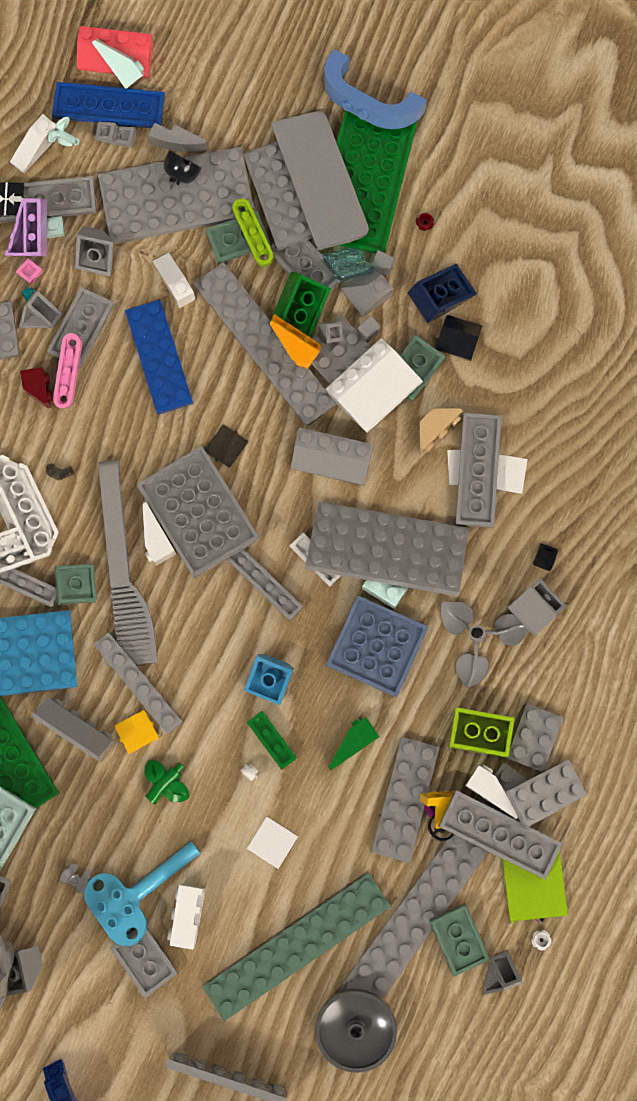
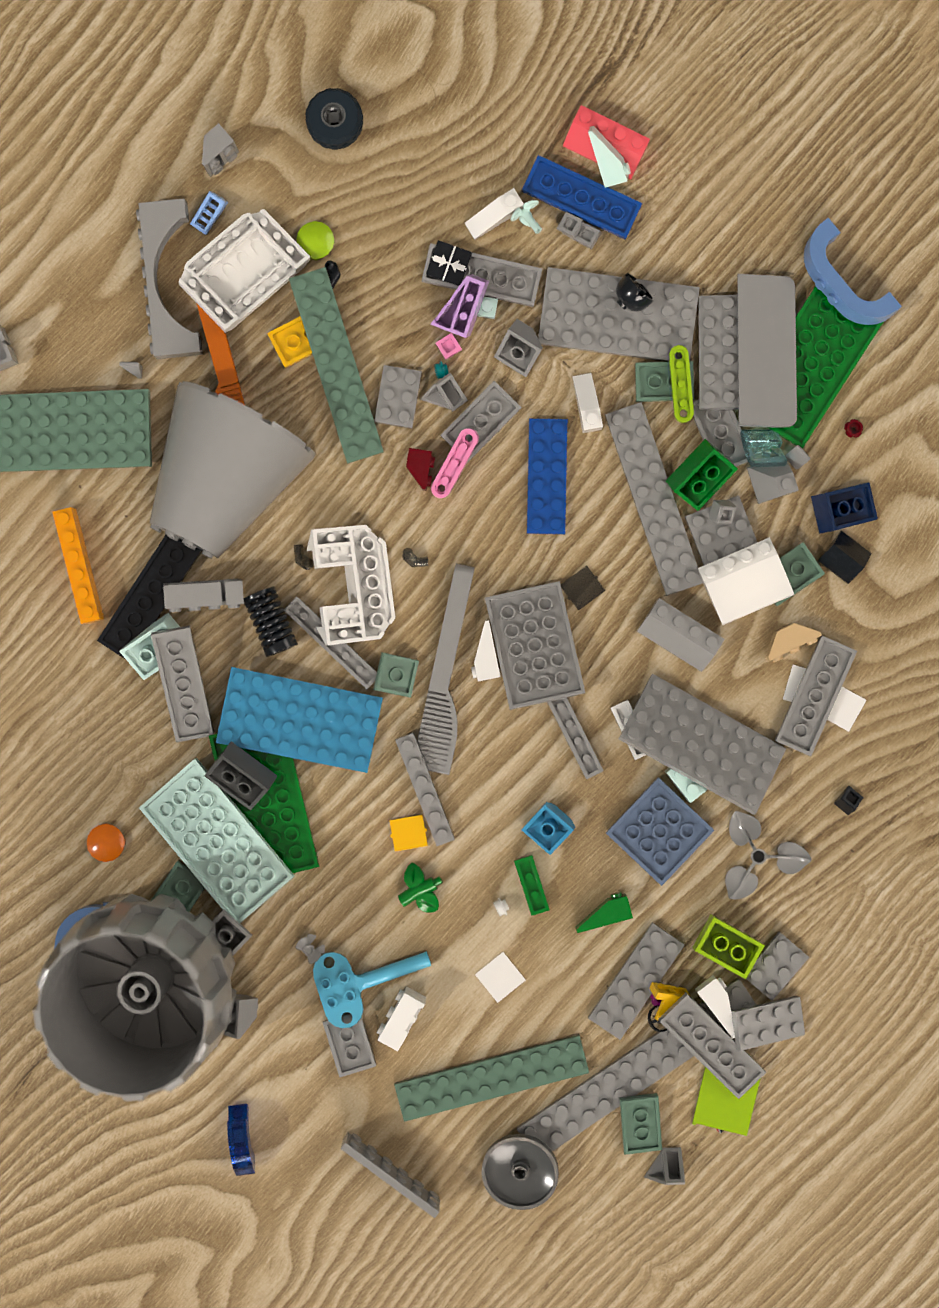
camera: 20 degrees right, 10 degrees up
(74, 729) = (352, 813): light grey slope -> none
(176, 139) = (637, 258): light grey slope -> none
(297, 344) = (687, 517): light orange slope -> none
(369, 329) = (760, 520): light grey slope -> none
(537, 606) = (823, 848): light grey slope -> none
(546, 940) = (714, 1153): white plate -> none

